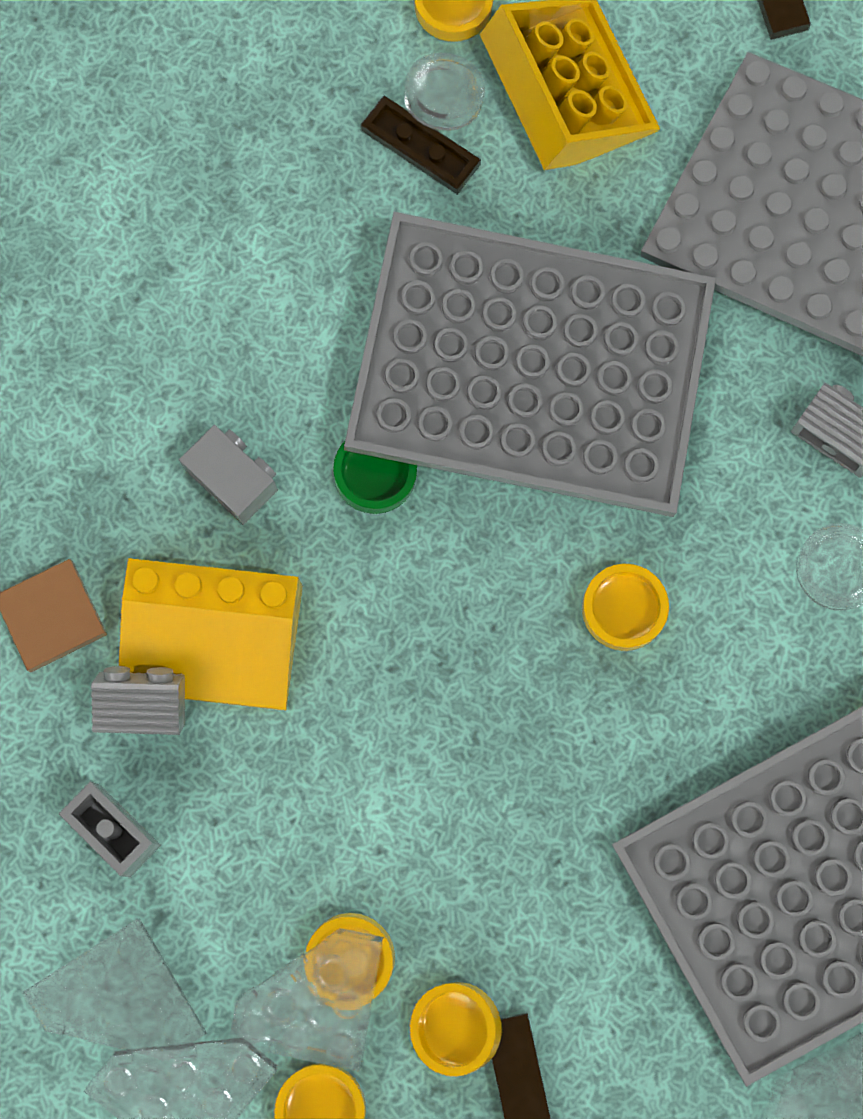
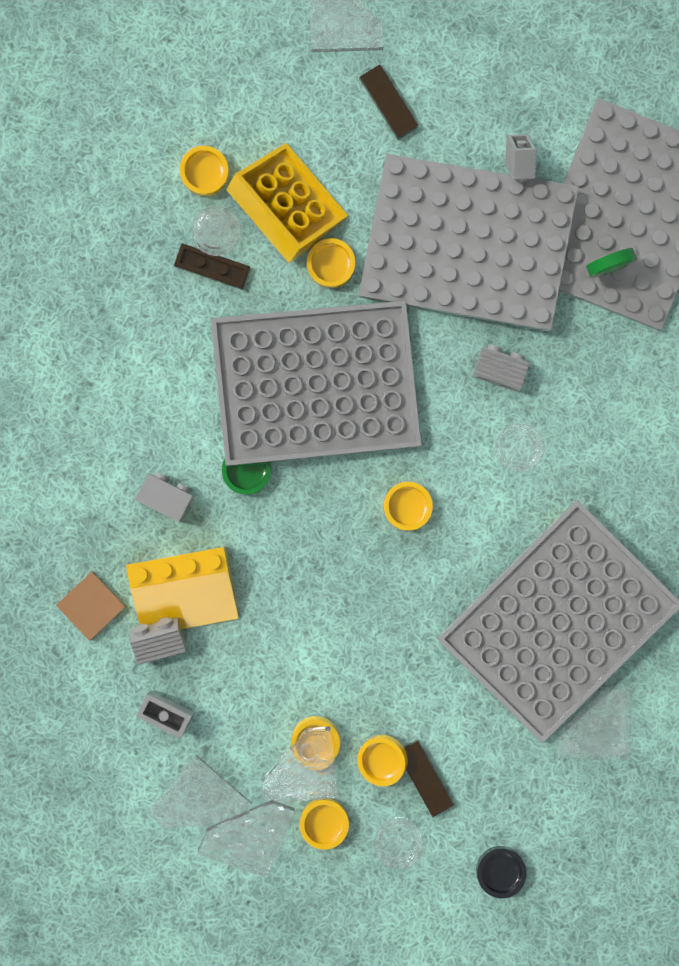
camera: 25 degrees left, 10 degrees up
(611, 190) = (331, 263): none -> yellow piece

